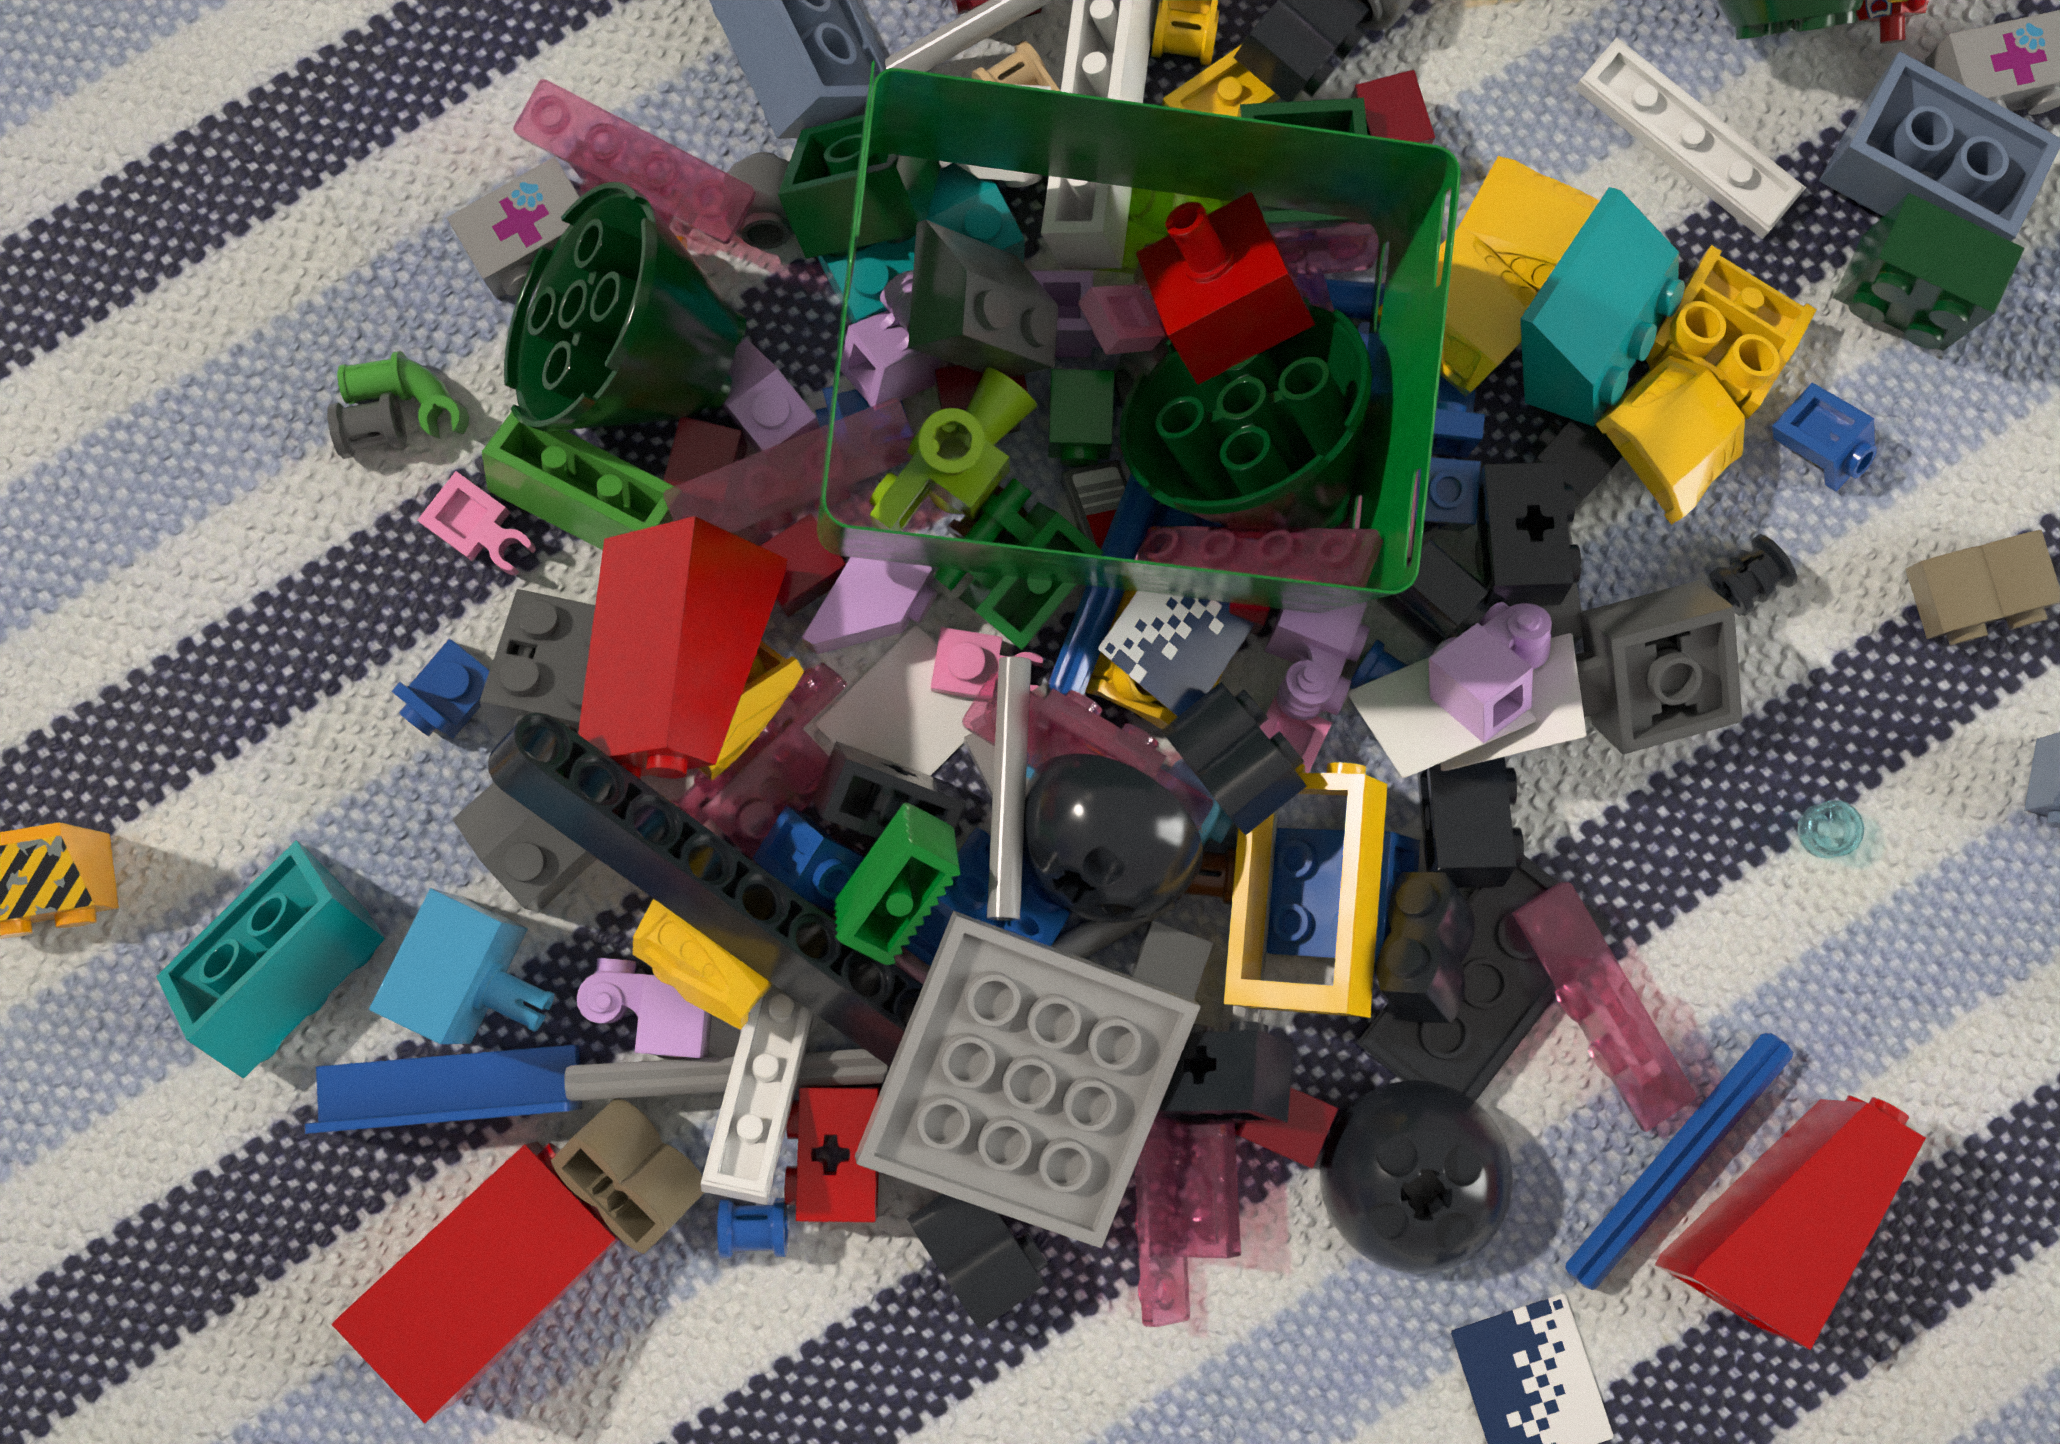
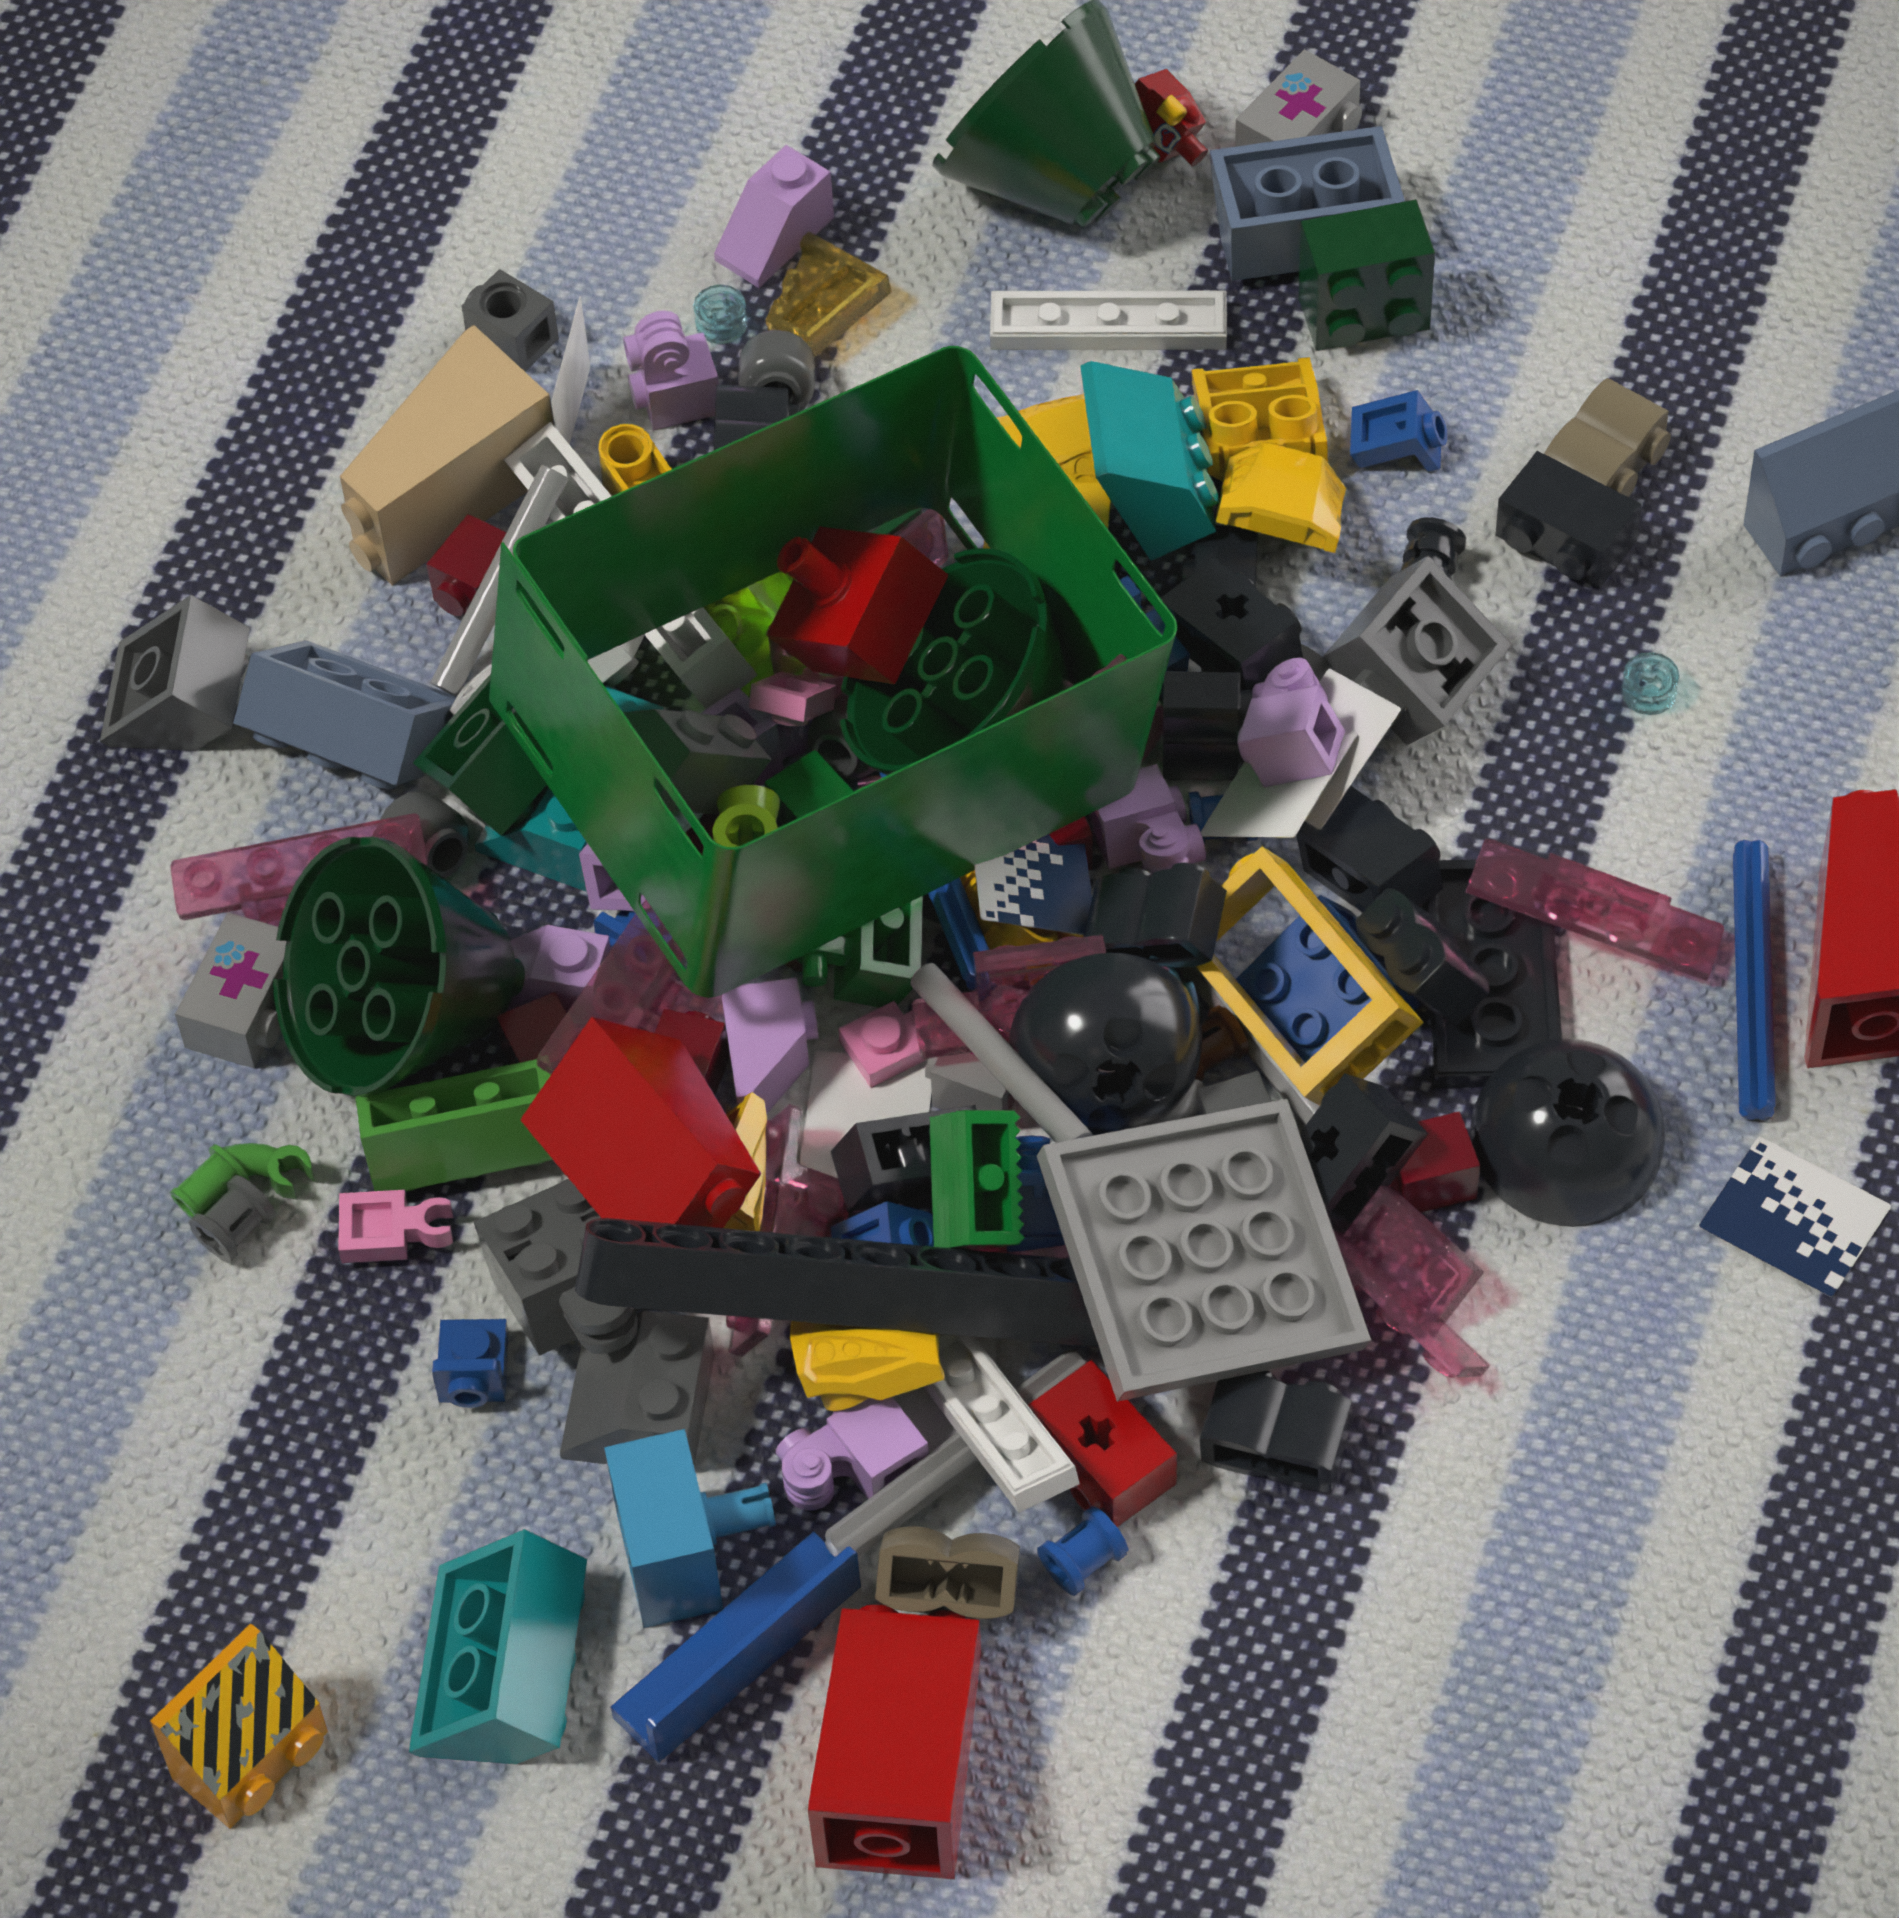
camera: 30 degrees left, 25 degrees down
(1893, 630) = (1567, 520): none -> black brick

